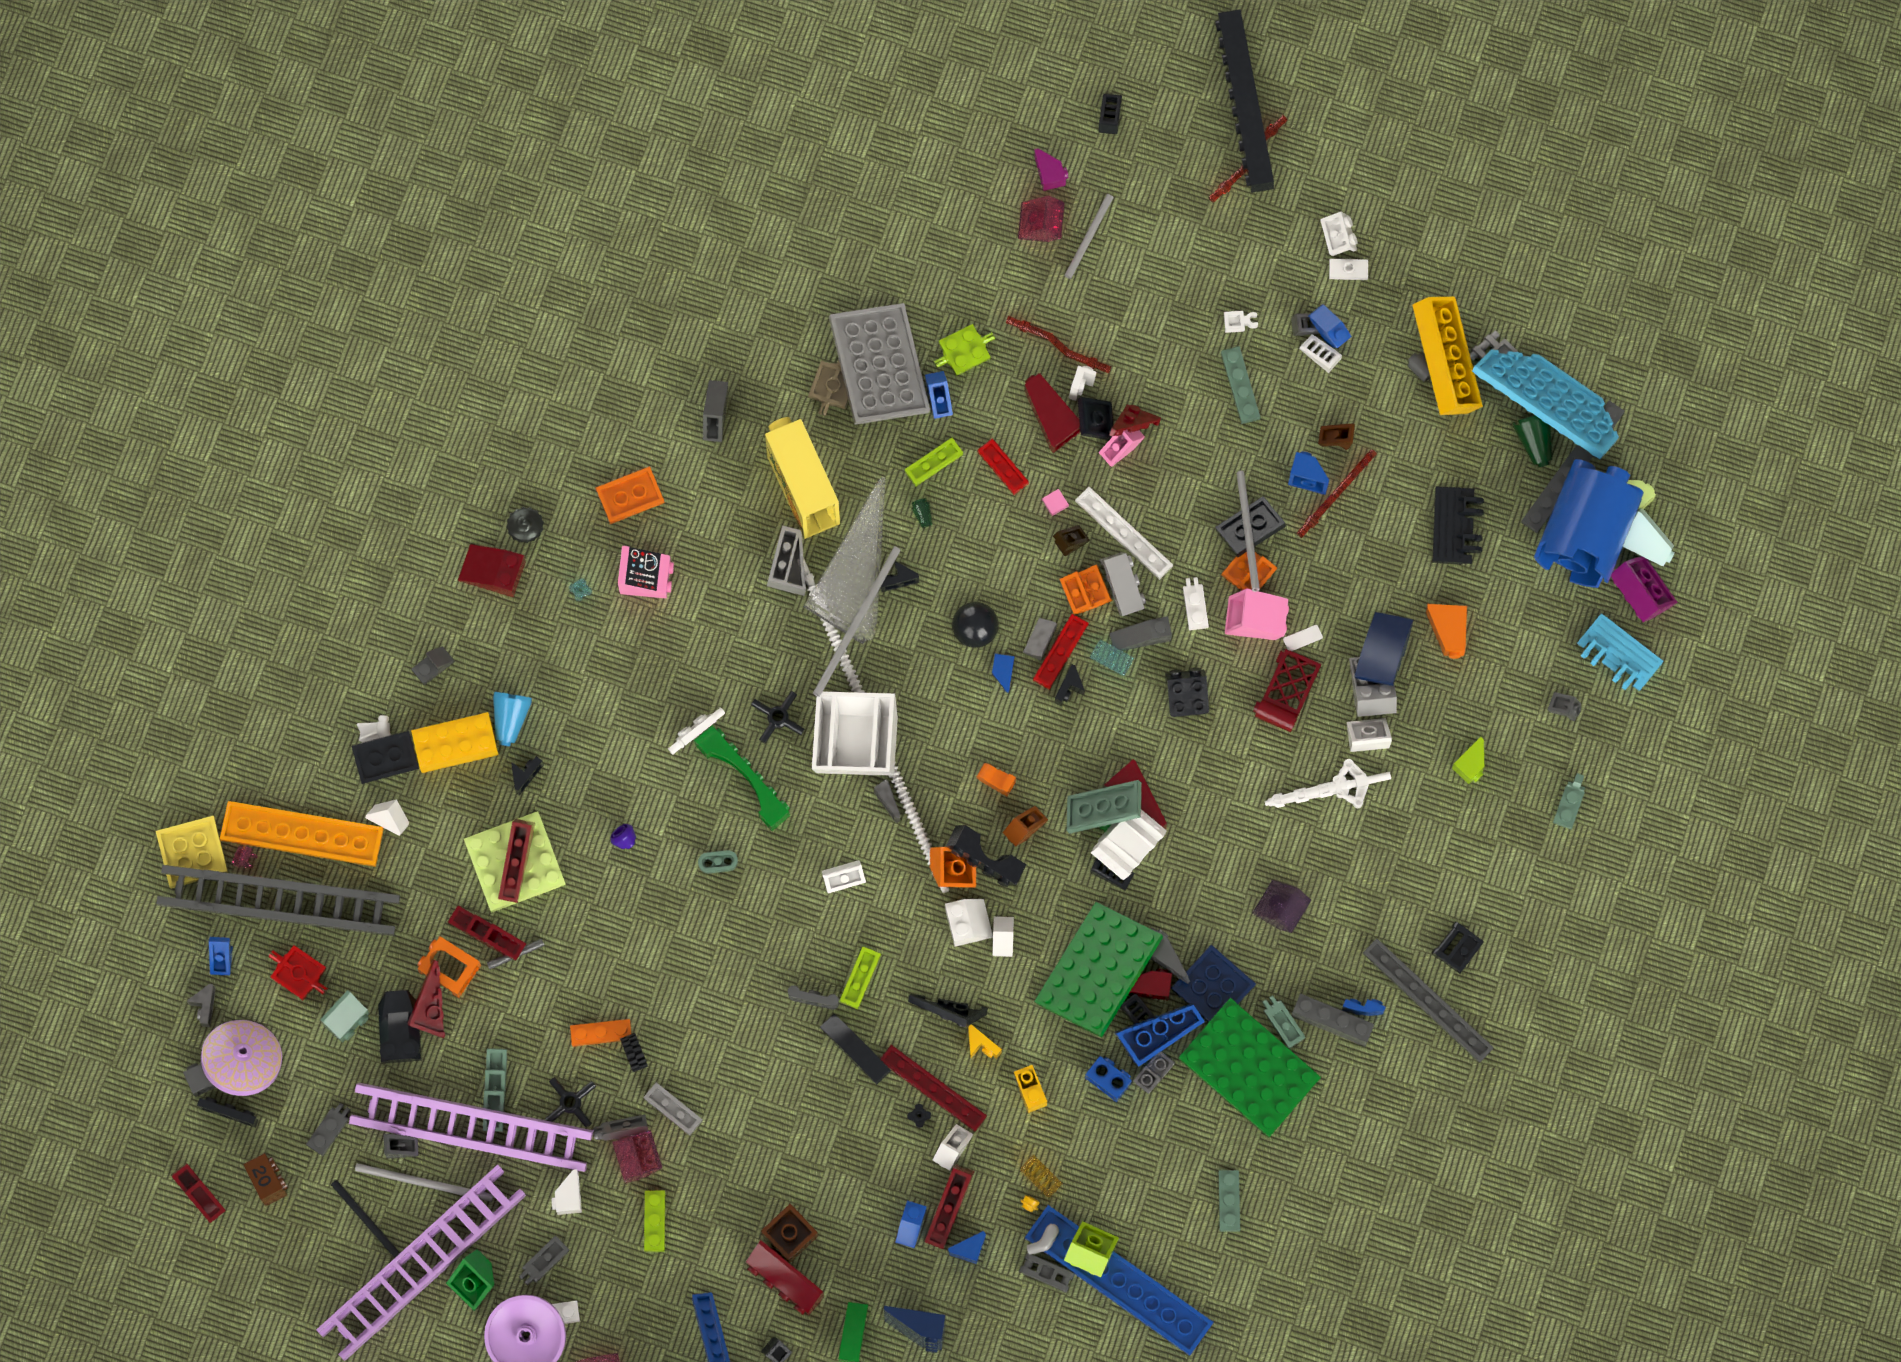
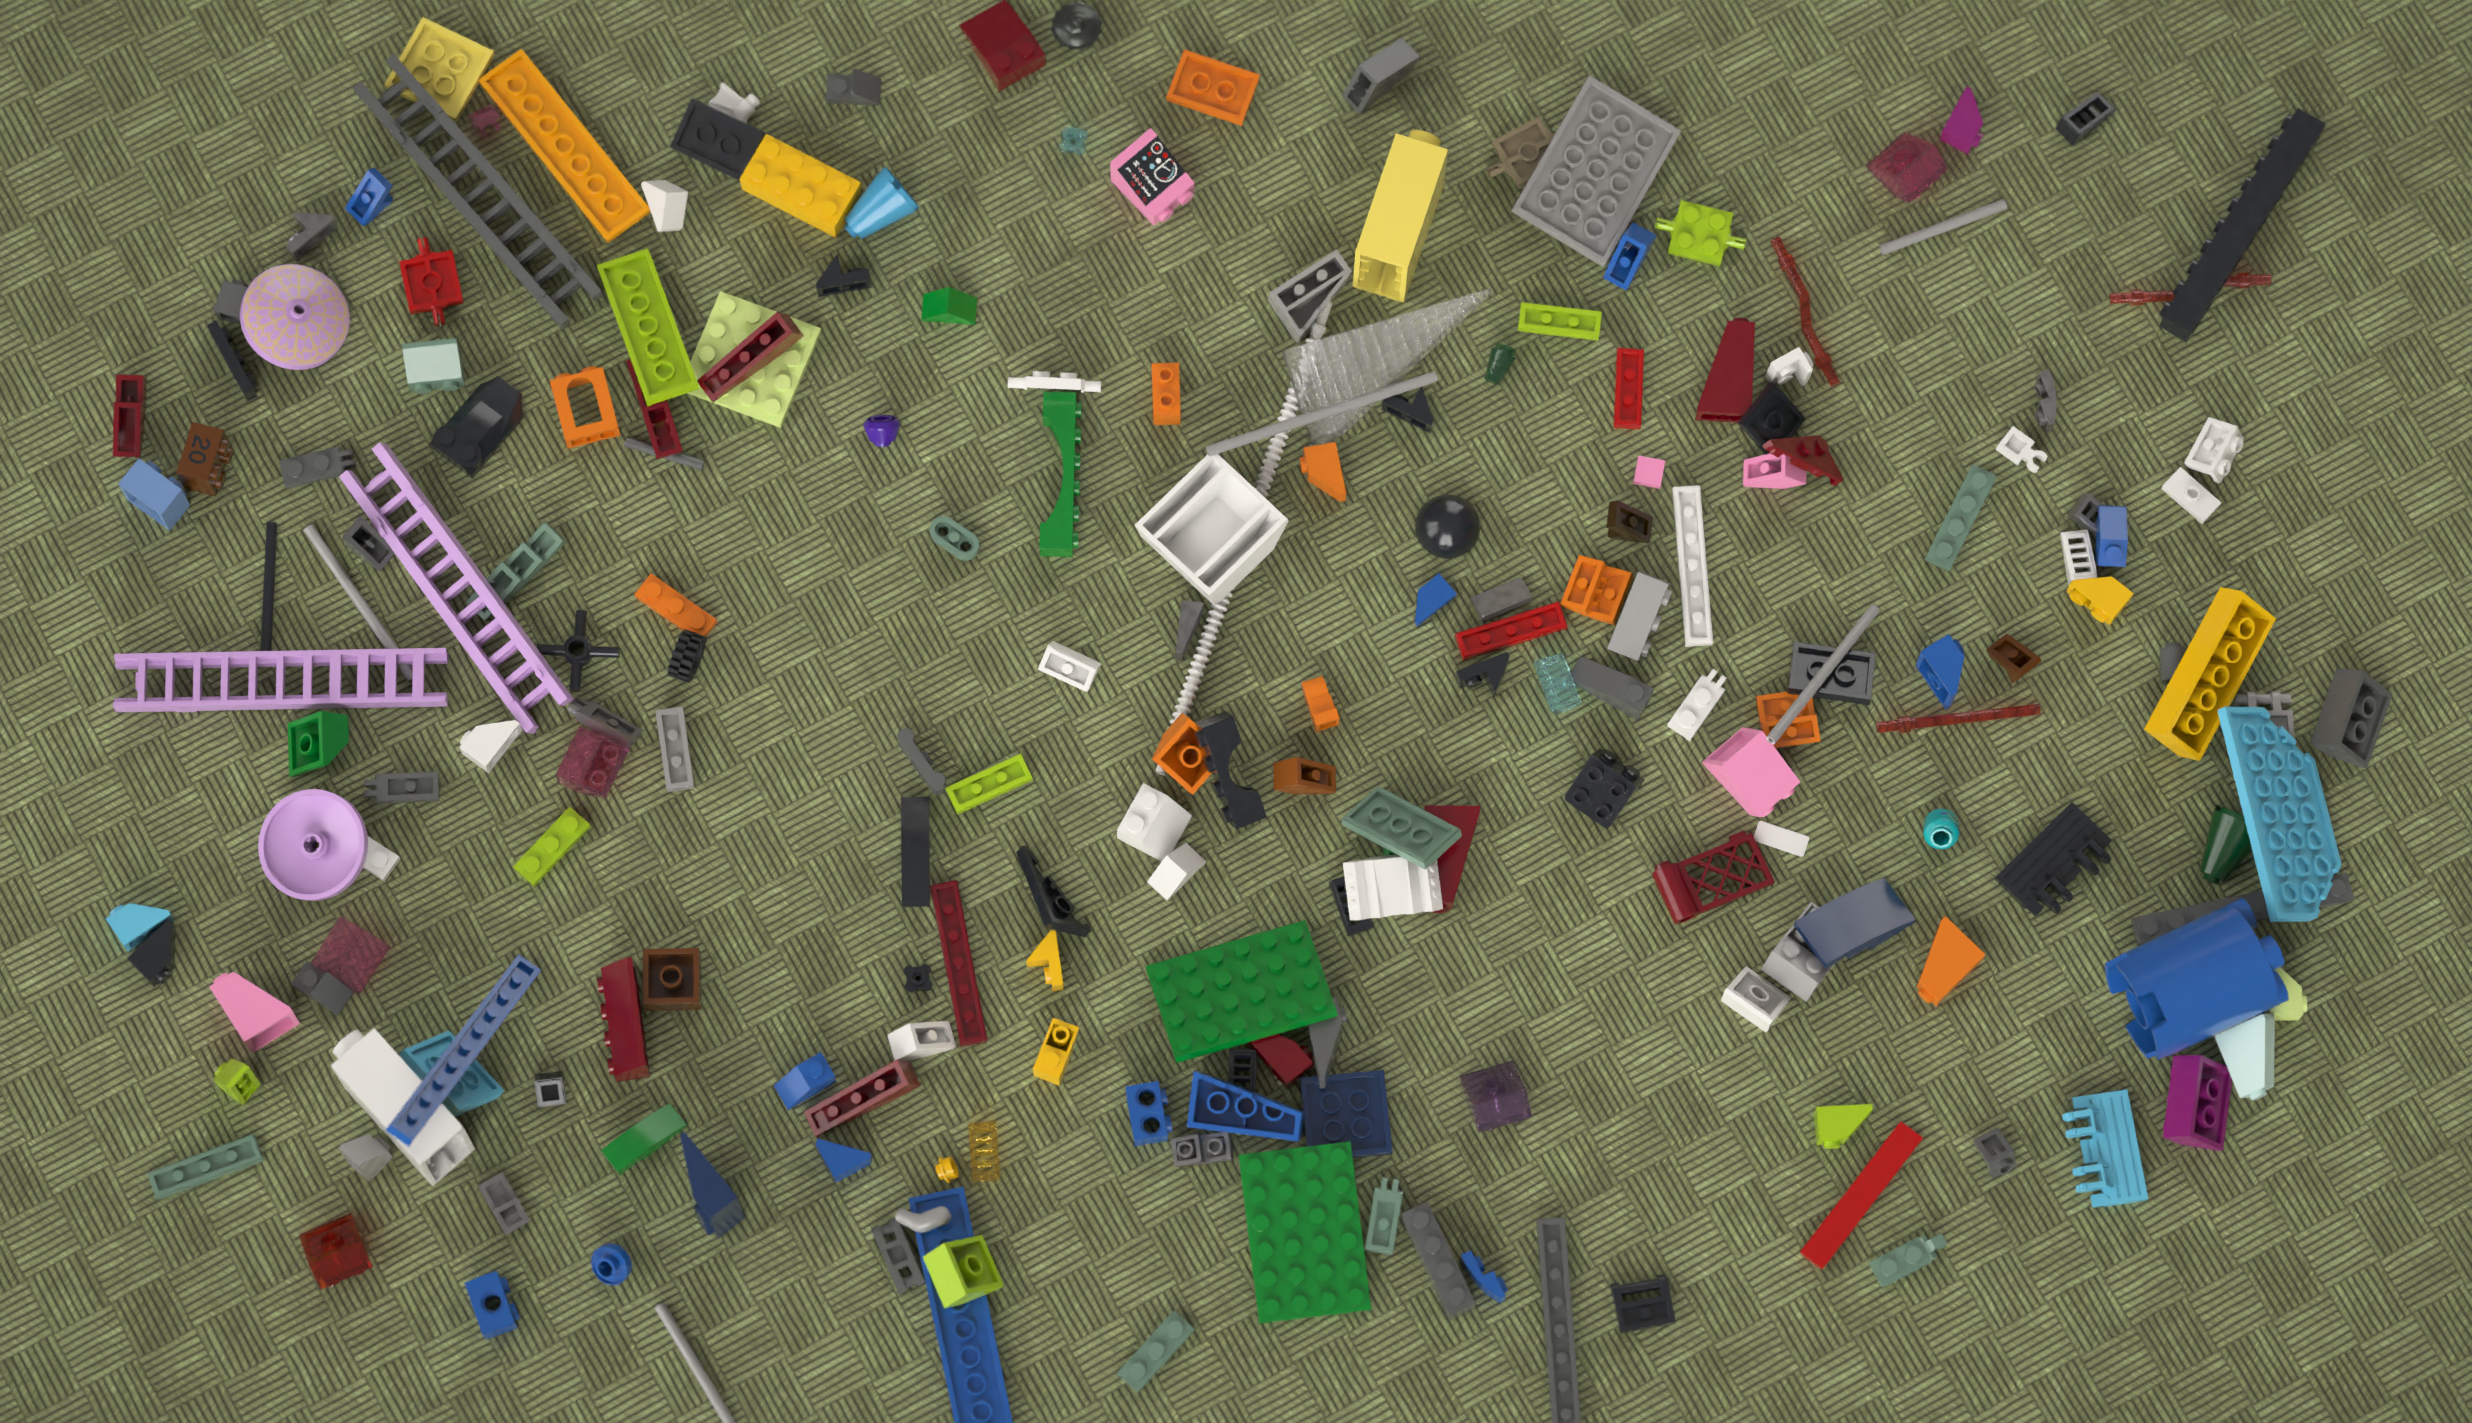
camera: 40 degrees right, 0 degrees up
(255, 1222) = (154, 494): none -> medium blue brick
(428, 1008) = (523, 430): dark red wing -> none
(443, 892) = (648, 327): none -> lime plate
(596, 739) = (949, 306): none -> green slope
(760, 683) = (1166, 394): none -> orange brick
(778, 710) = (1156, 454): black bar -> none
(883, 651) = (1324, 469): none -> orange slope
(1233, 287) = (2046, 408): none -> flat silver slope
(1339, 786) = (1673, 1026): white bar -> none
(1352, 363) = (2101, 595): none -> yellow slope
(1382, 559) = (1941, 829): none -> teal head
(1516, 790) = (1861, 1195): none -> red tile
(1537, 315) = (2351, 717): none -> dark grey slope

